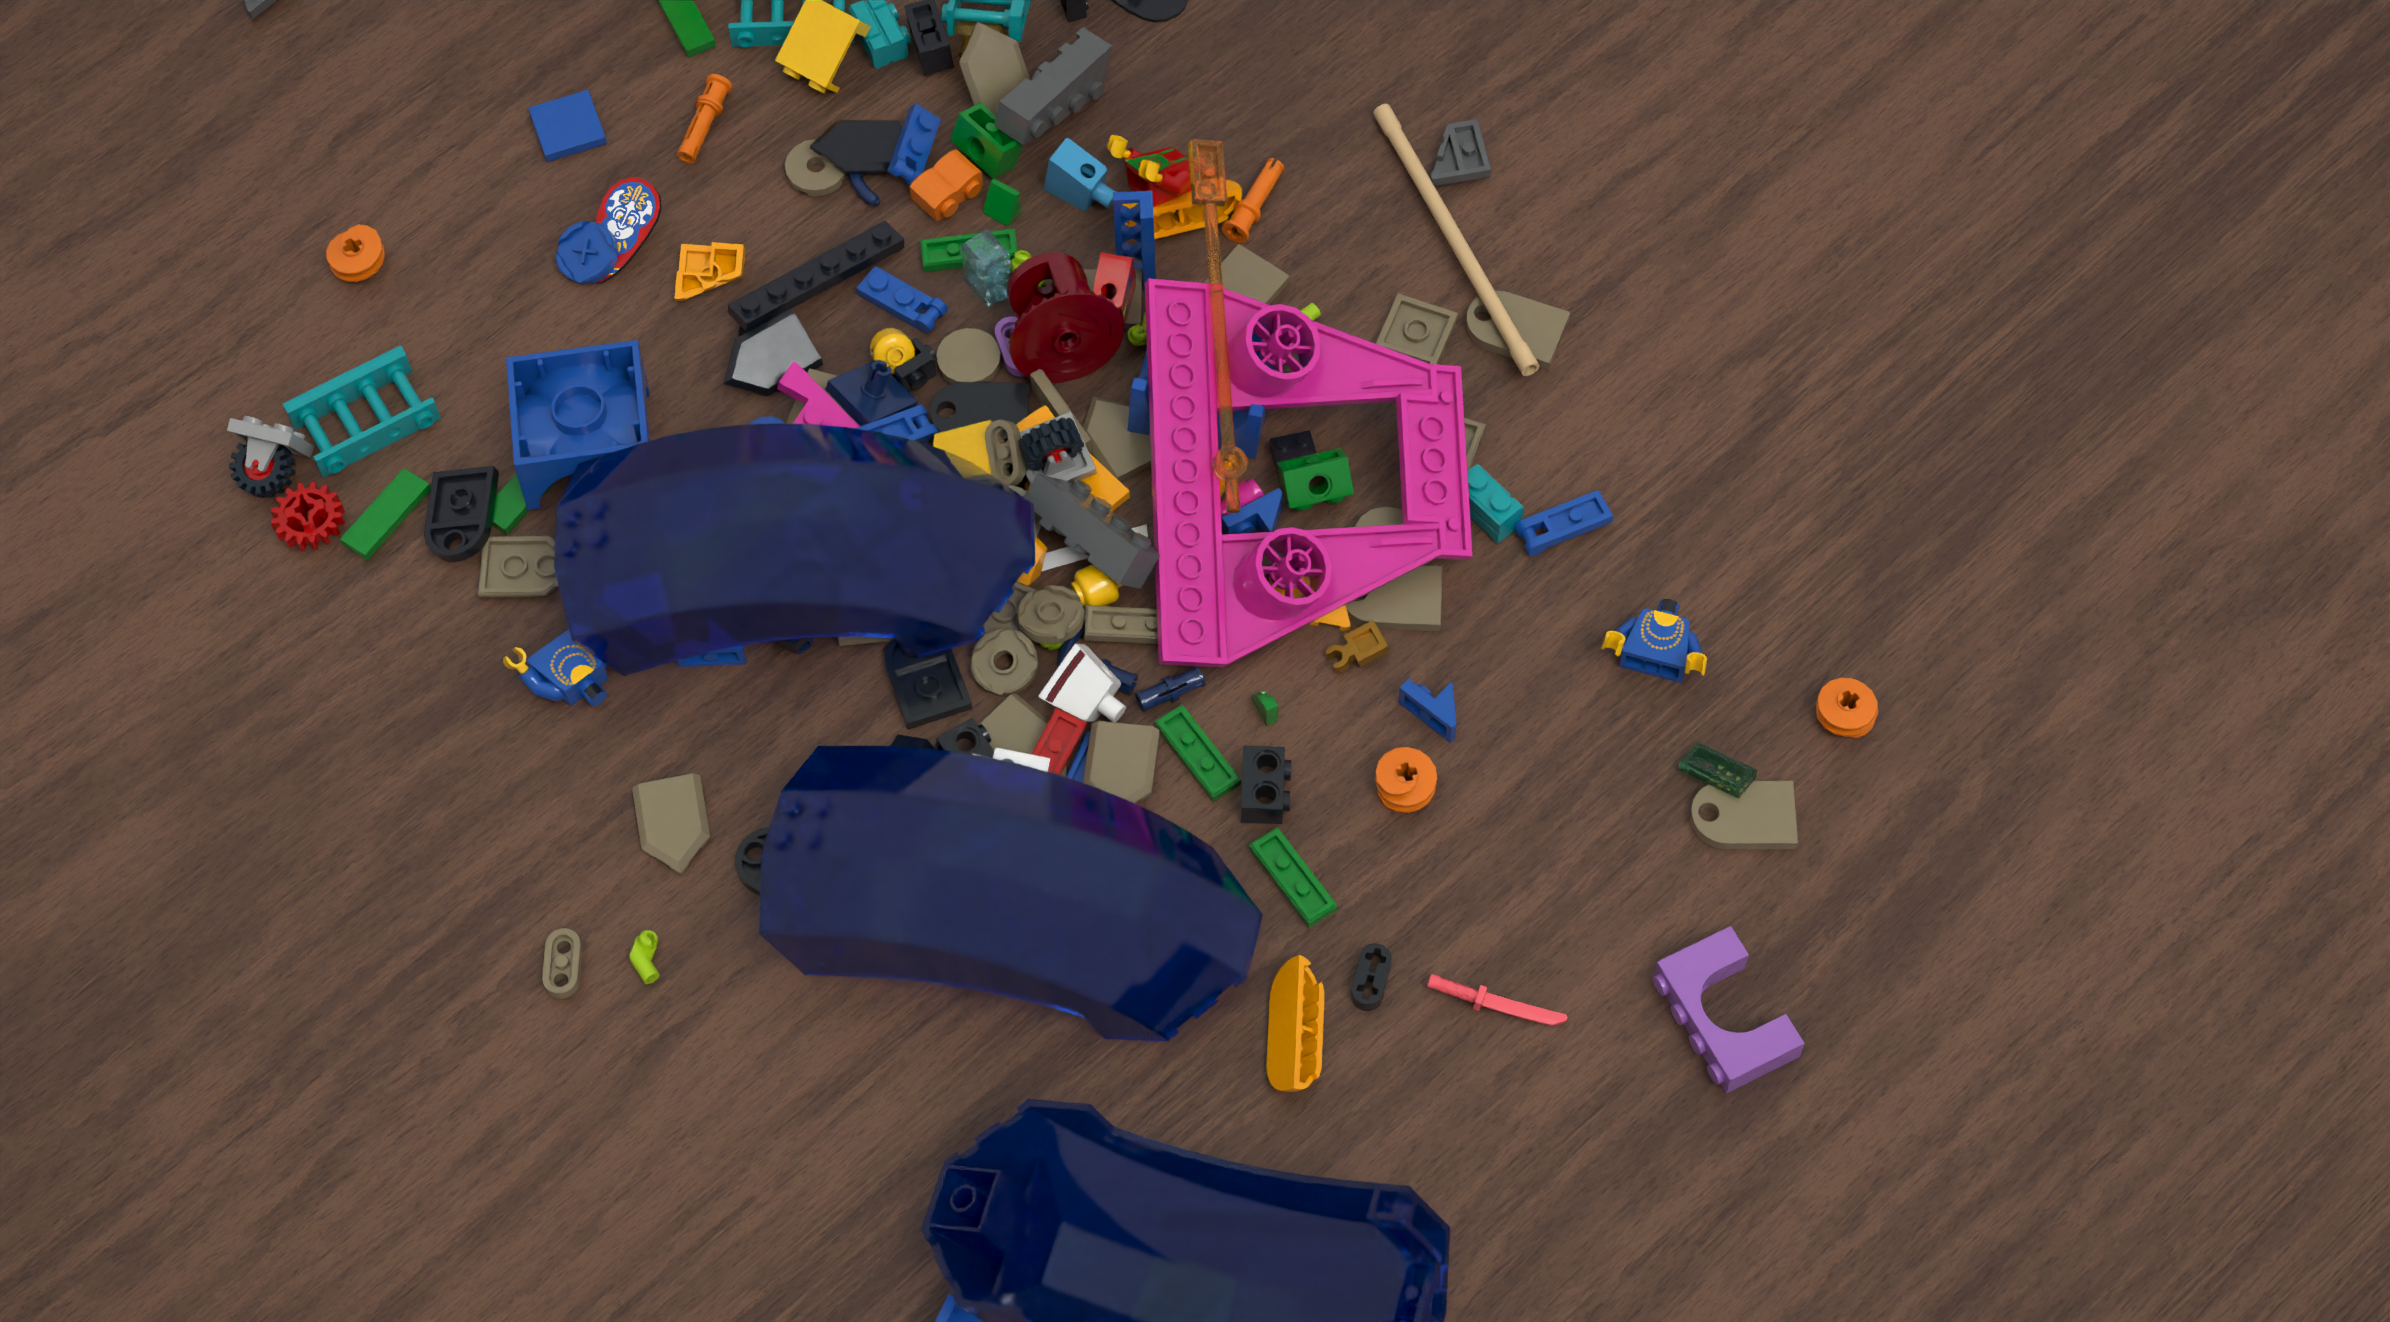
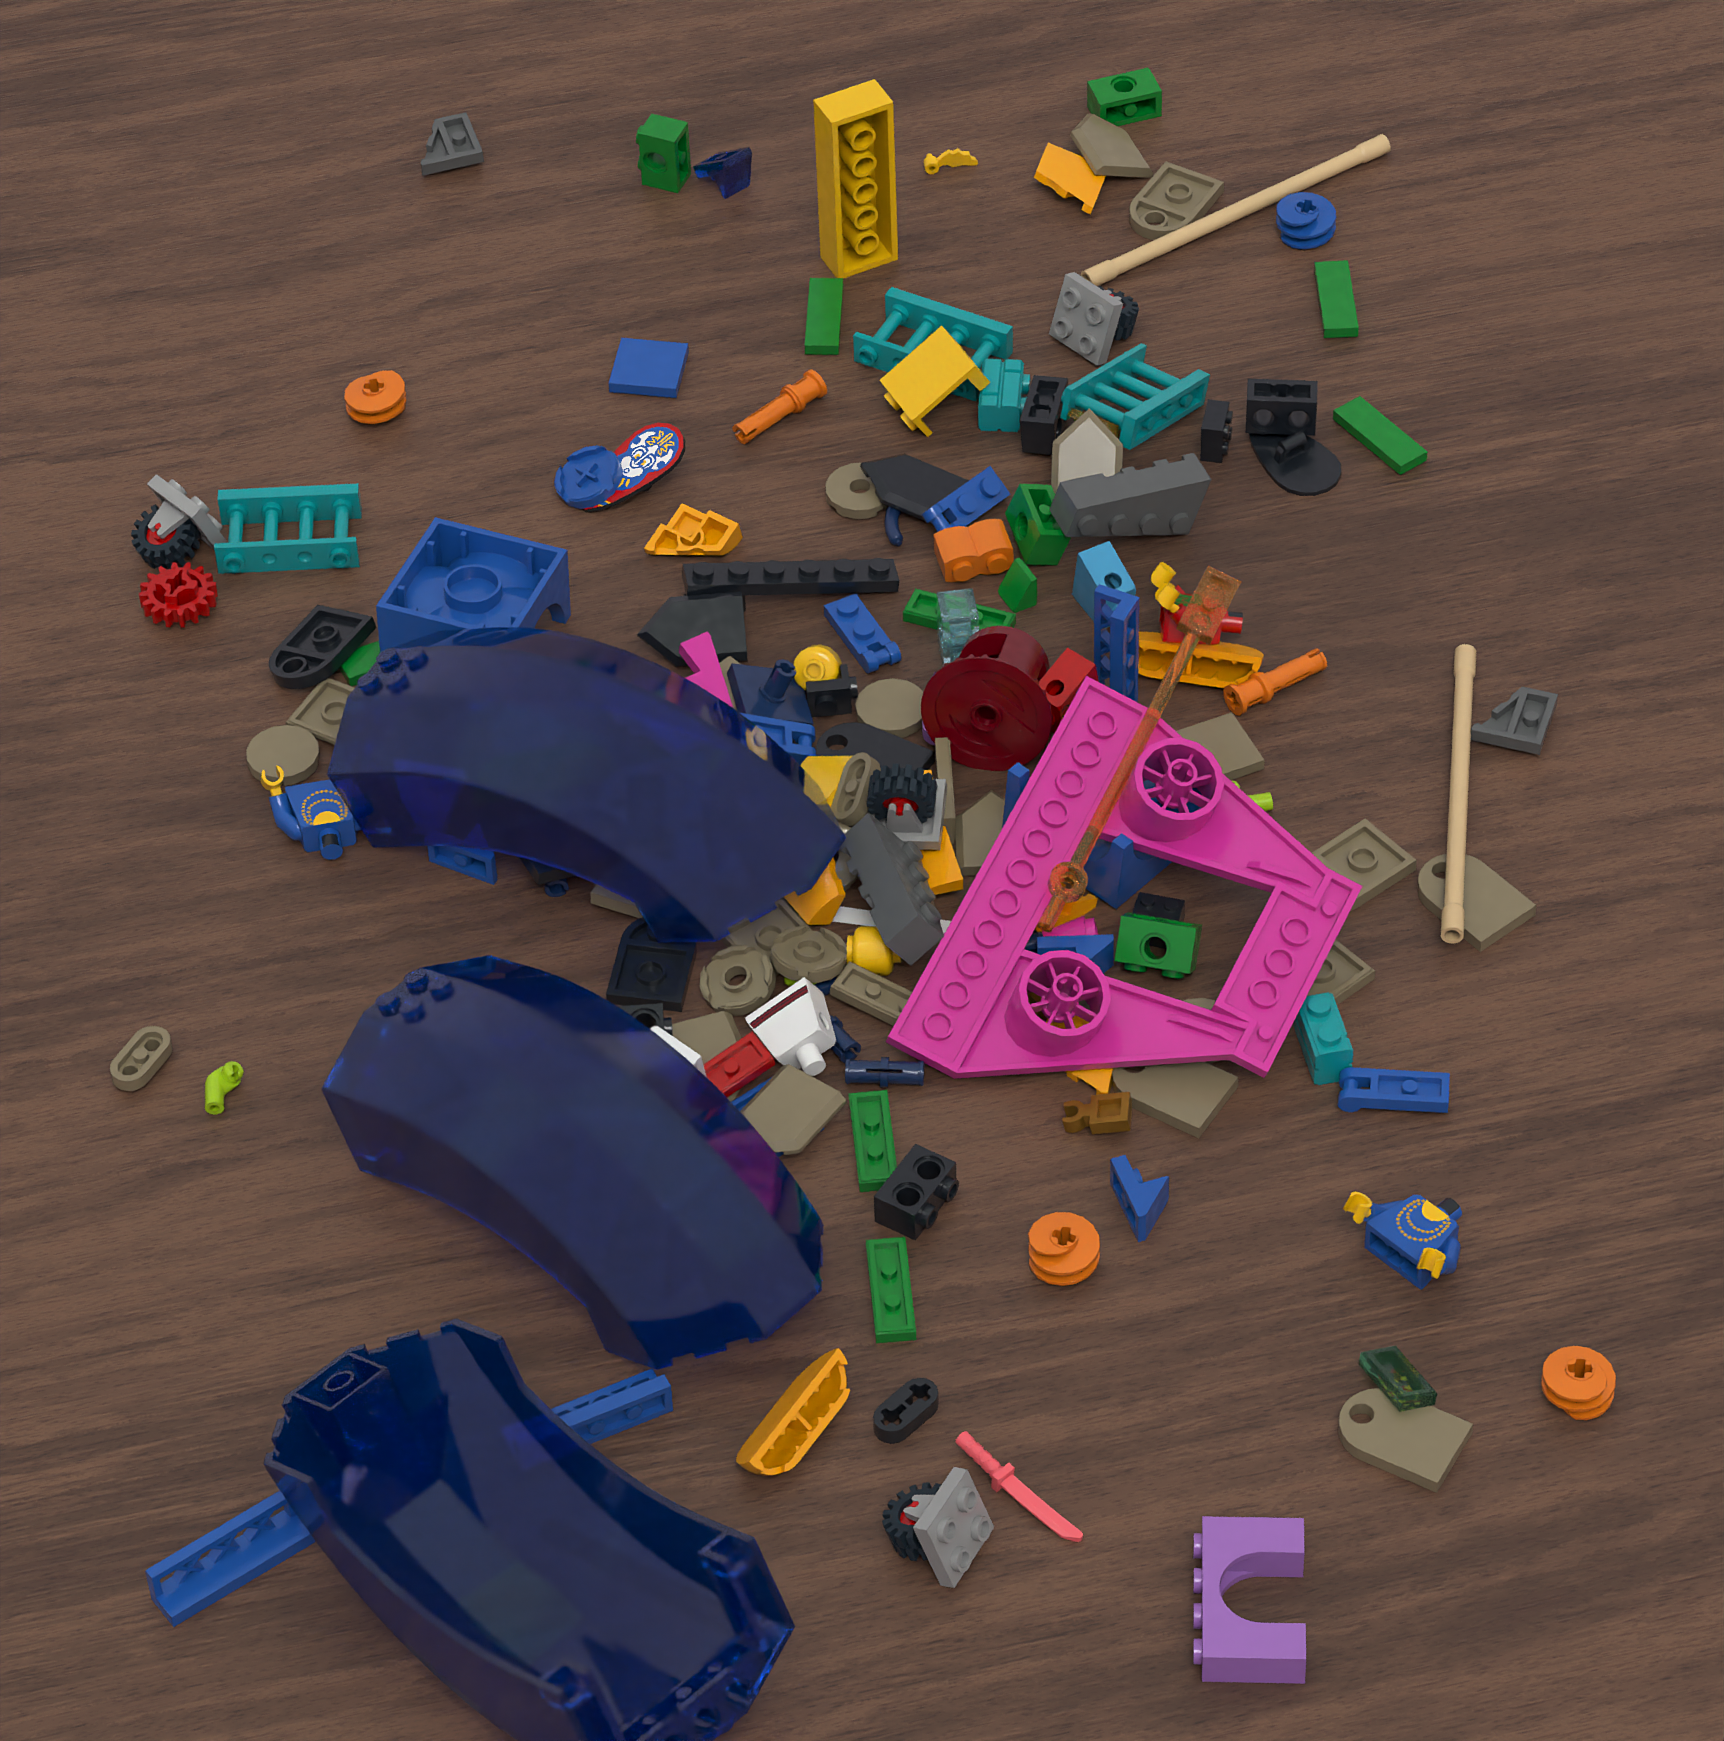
camera: 30 degrees right, 15 degrees down
(385, 514) = (250, 623): green tile -> none
(494, 626) = (286, 747): none -> dark tan tile
(672, 819) = (330, 983): dark tan tile -> none
(1157, 1090) = (618, 1406): none -> blue fence
(1266, 706) = (969, 1128): green tile -> none
(1464, 1067) = (940, 1525): none -> light grey plate

